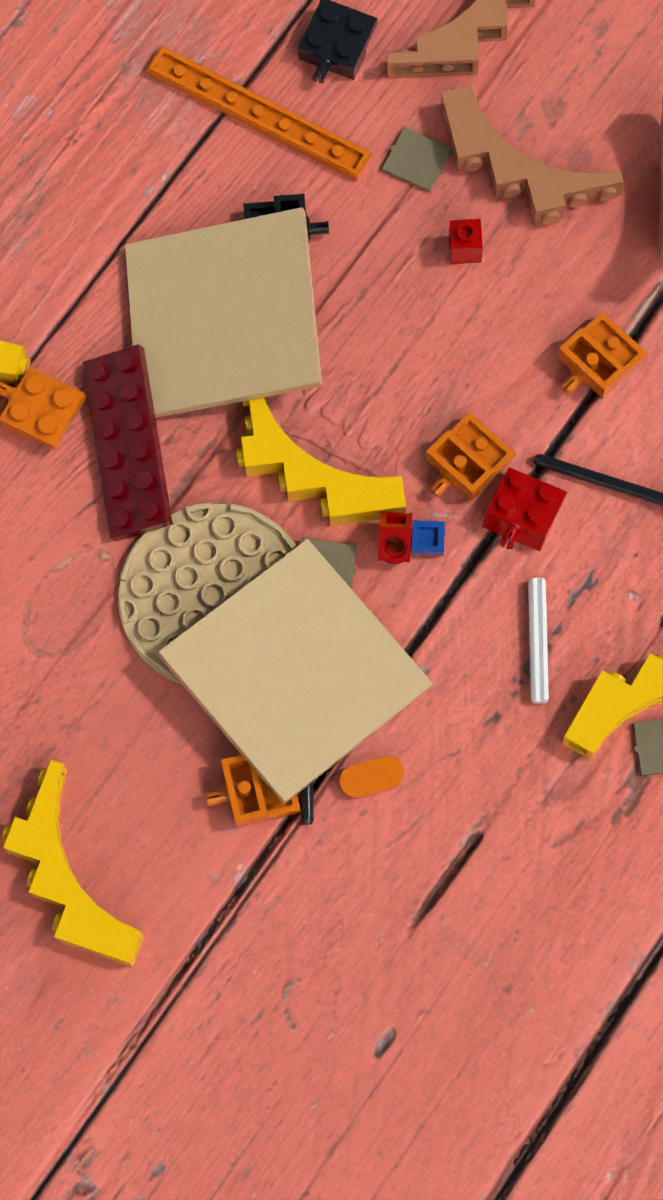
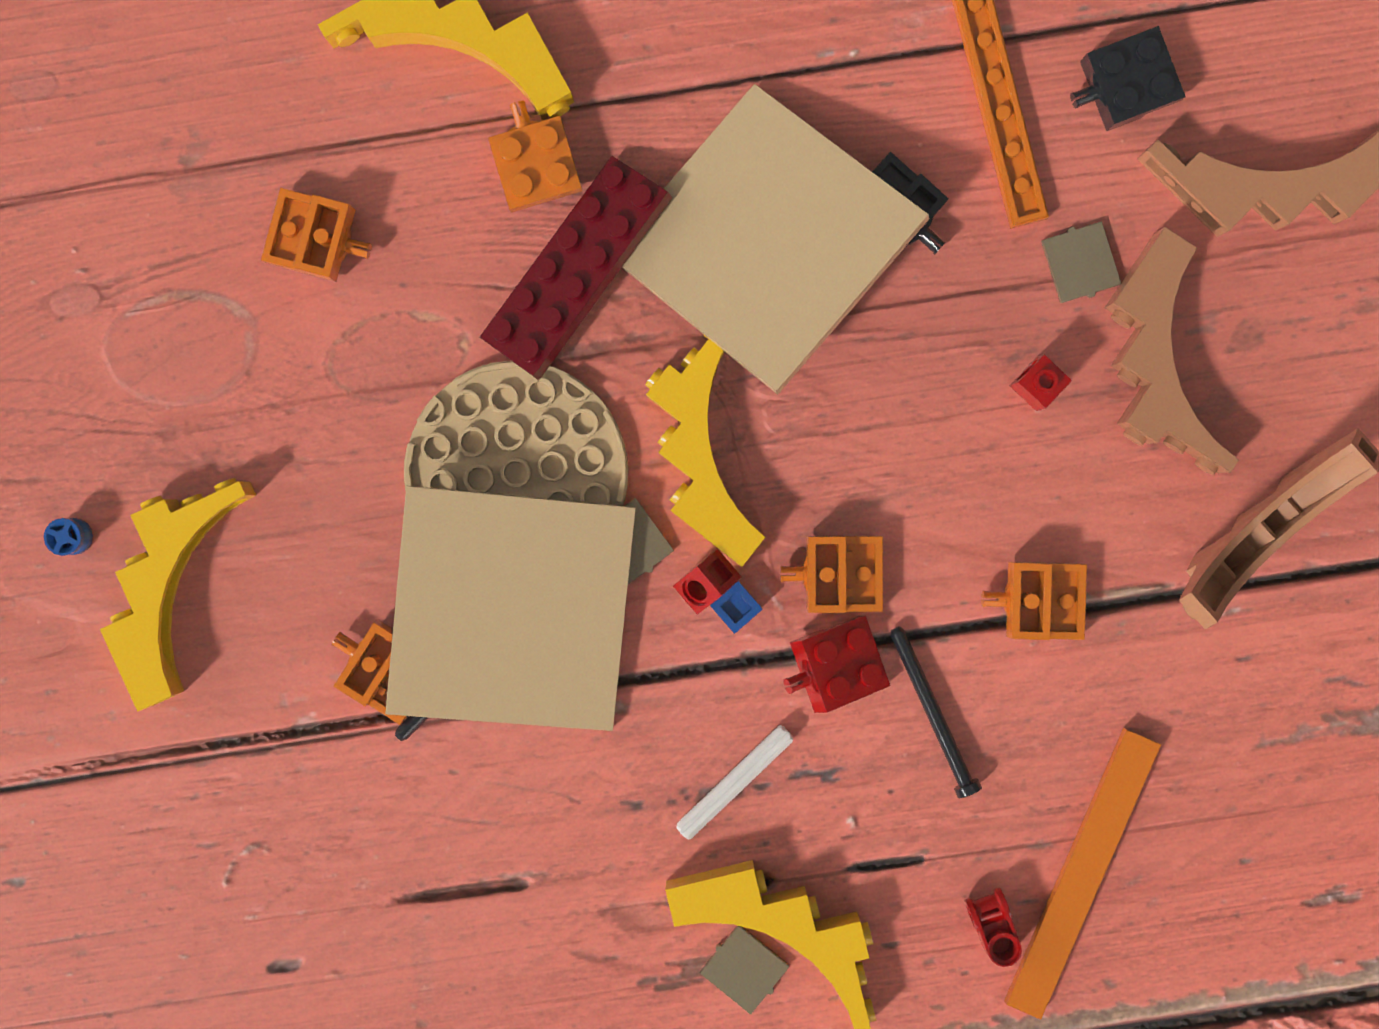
camera: 45 degrees right, 15 degrees up
(371, 777) = (486, 753): orange tile -> none

